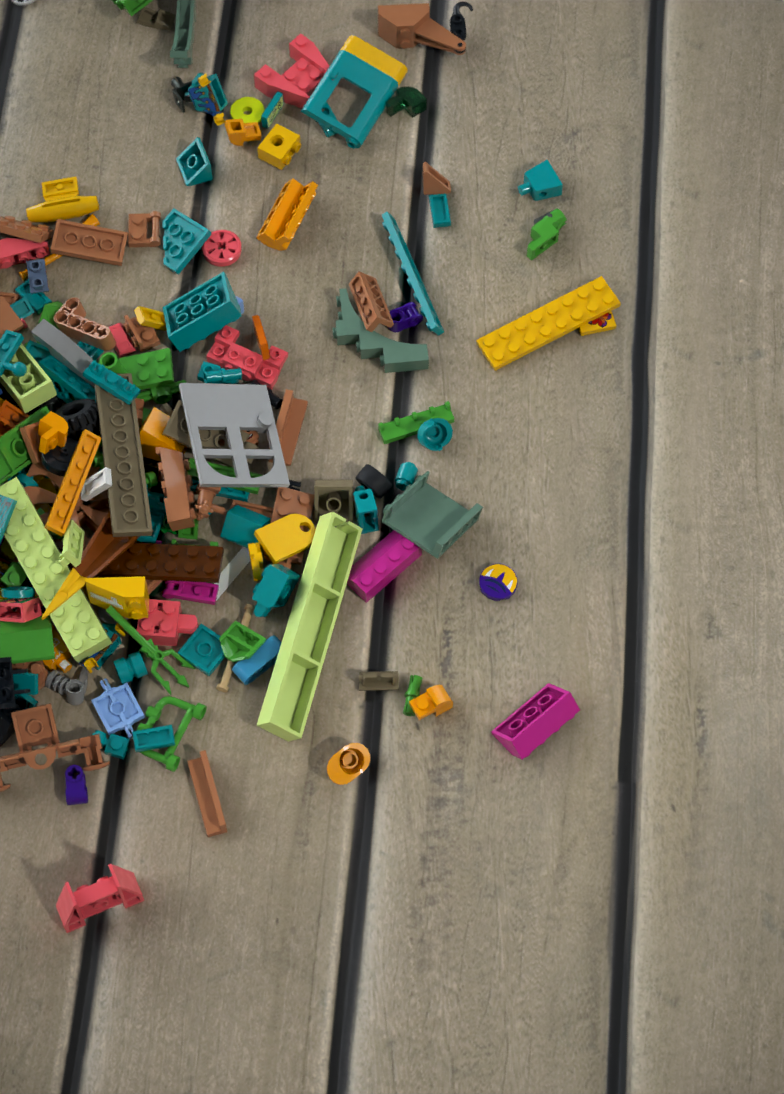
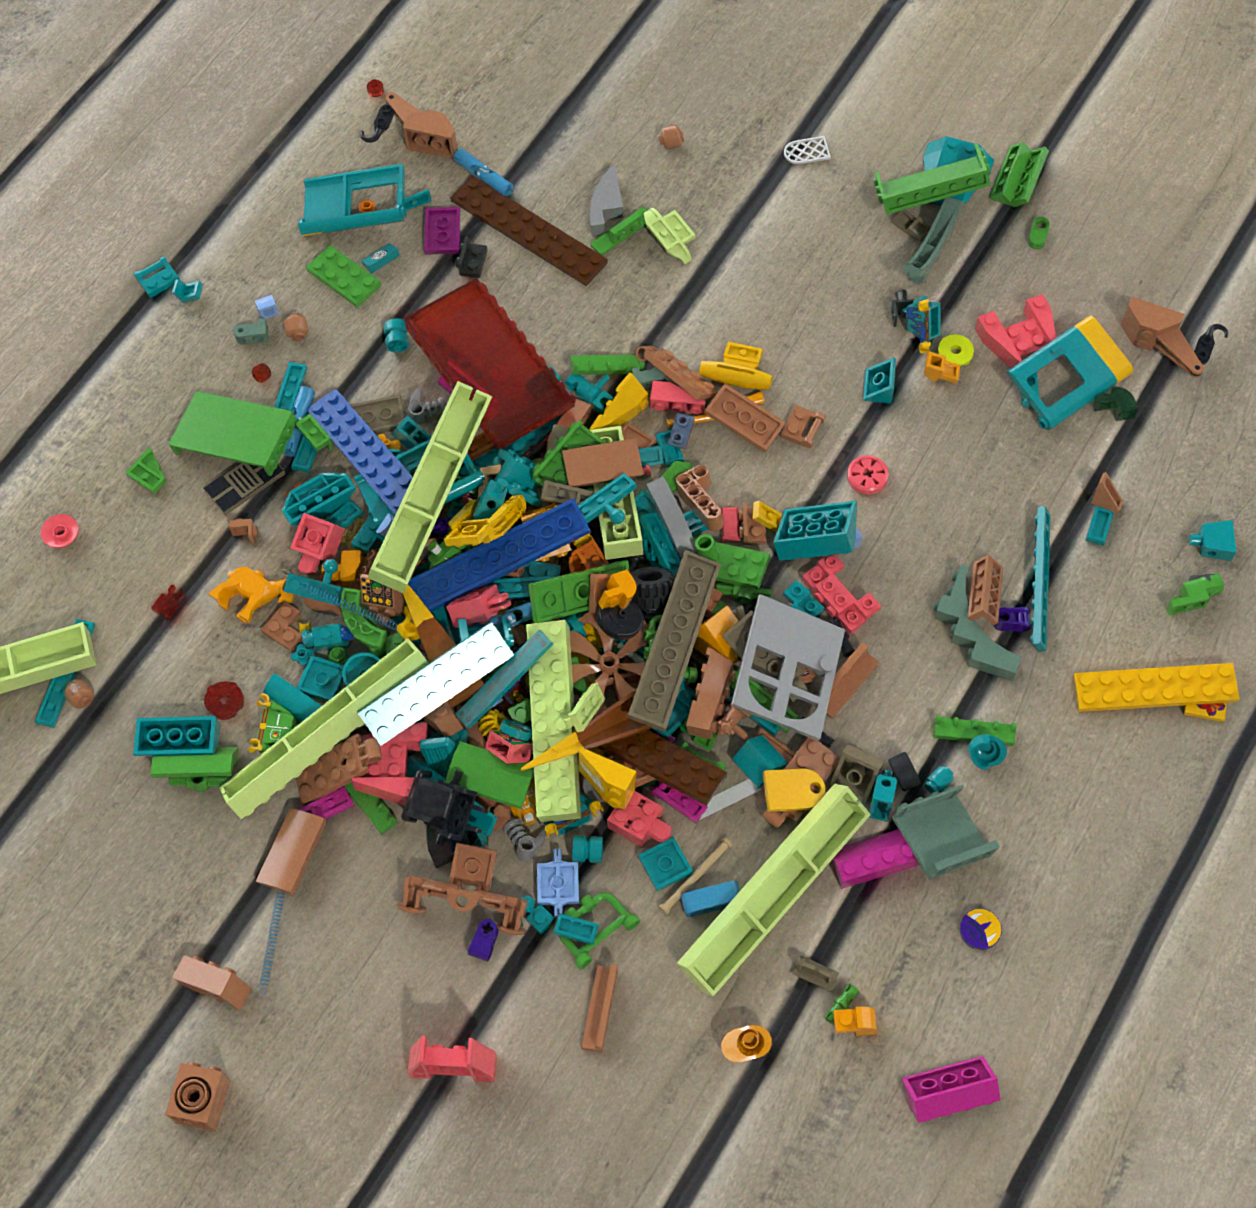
camera: 30 degrees right, 0 degrees up
(73, 483) = (615, 648): light orange plate -> none
(96, 484) = (635, 658): white tile -> none
(111, 382) = (697, 565): teal plate -> none
(152, 651) = (614, 844): bright green piece -> none
(181, 240) = (832, 452): teal plate -> none
(222, 375) = (807, 602): teal pin -> none
(240, 642) = (700, 873): bright green slope -> none
(256, 560) = (753, 801): yellow plate -> none
(261, 338) = (862, 580): orange tile -> none
(272, 110) = (980, 358): teal tile -> none
(274, 588) = (757, 835): teal hinge -> none
(279, 146) = (967, 407): yellow brick -> none
(286, 214) = (945, 468): light orange brick -> none

